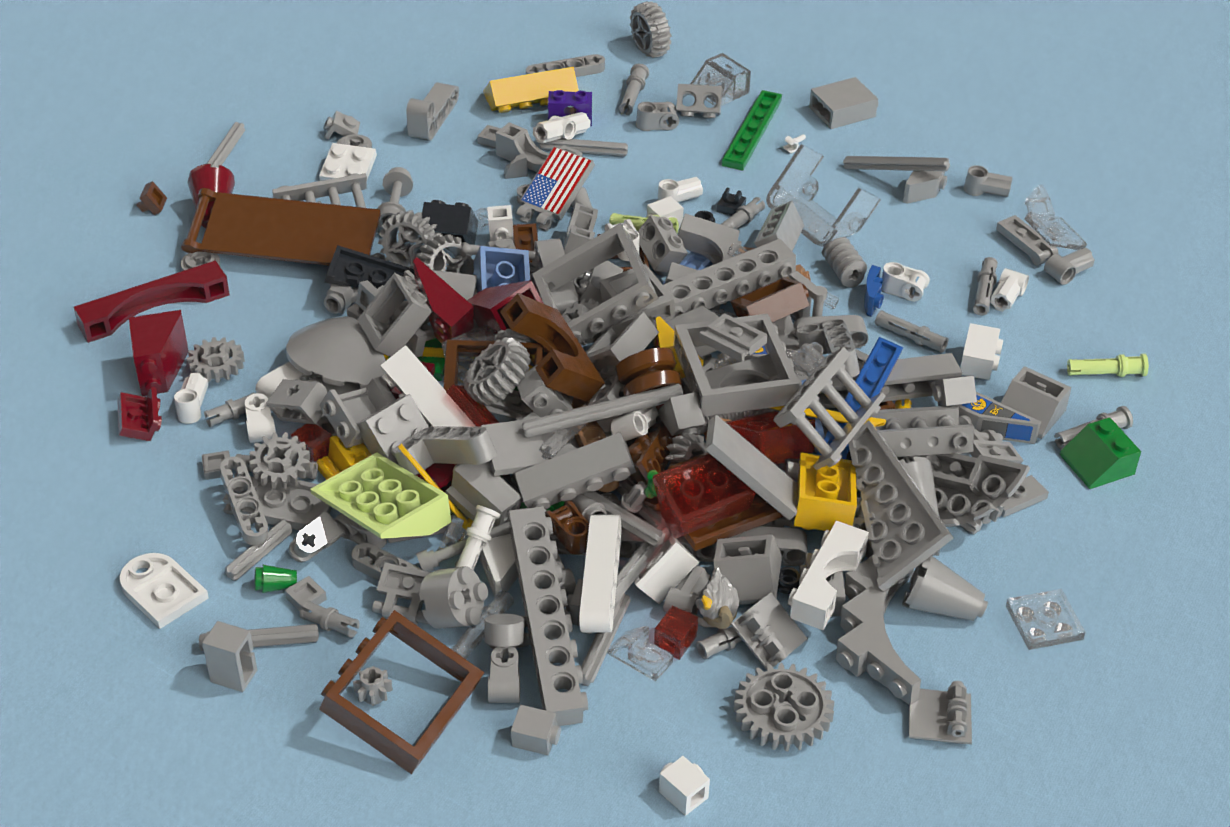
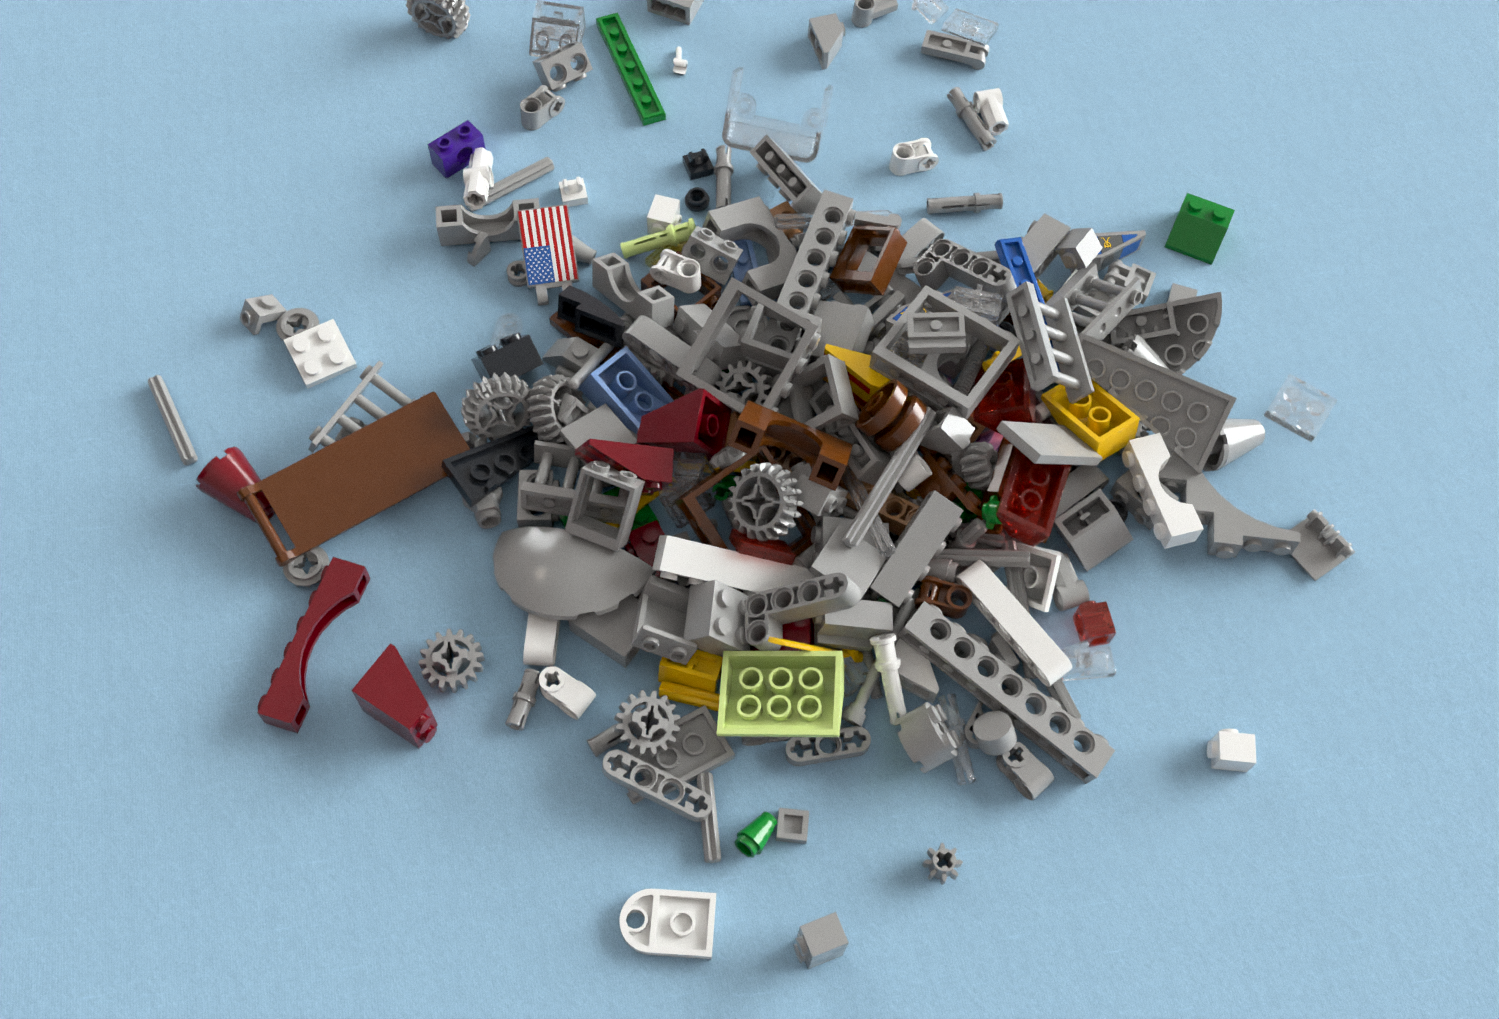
camera: 45 degrees left, 20 degrees up
(139, 415) = (452, 773): dark red bracket -> none
(152, 199) = (172, 528): reddish brown tile -> none
(190, 398) = (476, 716): white piece -> none
(212, 463) = (574, 764): light grey tile -> none
(280, 635) = (803, 898): light grey axle -> none
(298, 401) = (612, 652): light grey brick -> none
(316, 440) = (642, 668): clear red brick -> none
(317, 535) = (749, 765): light grey piece -> none
(329, 619) = (840, 832): light grey pin -> none
(370, 729) = (1021, 841): reddish brown window -> none
(397, 184) = (395, 342): light grey piece -> none
(402, 583) = (872, 752): light grey plate -> none
(428, 115) = (331, 234): light grey beam -> none
(450, 264) = (571, 409): none -> light grey slope
(488, 136) = (414, 227): light grey tile -> none
(500, 222) = (543, 326): white brick -> none
(528, 89) = (397, 150): yellow slope -> none
(530, 226) = (590, 316): none -> black slope
(535, 730) = (1094, 796): light grey brick -> none
(582, 65) = (390, 99): light grey beam -> none
(621, 173) = (573, 192): none -> white tile
(635, 83) = (481, 81): light grey pin -> none
(680, 190) = (646, 182): white piece -> none
(718, 602) = (1105, 576): light grey hair -> none
(718, 642) = (1127, 599): light grey pin -> none
(769, 631) = (1155, 571): light grey hinge -> none
(784, 706) = (1224, 626): light grey gear -> none
(845, 261) = (852, 167): light grey piece -> none
(873, 297) = (900, 185): blue slope -> none
(896, 163) = (796, 35): light grey axle -> none
(980, 351) = (1036, 189): white brick -> none
(1037, 397) = (1117, 208): light grey slope -> none
(1066, 267) = (1009, 55): light grey piece -> none
(1120, 366) = (1131, 133): yellowish green pin -> none
(1121, 417) = (1173, 198): light grey pin -> none

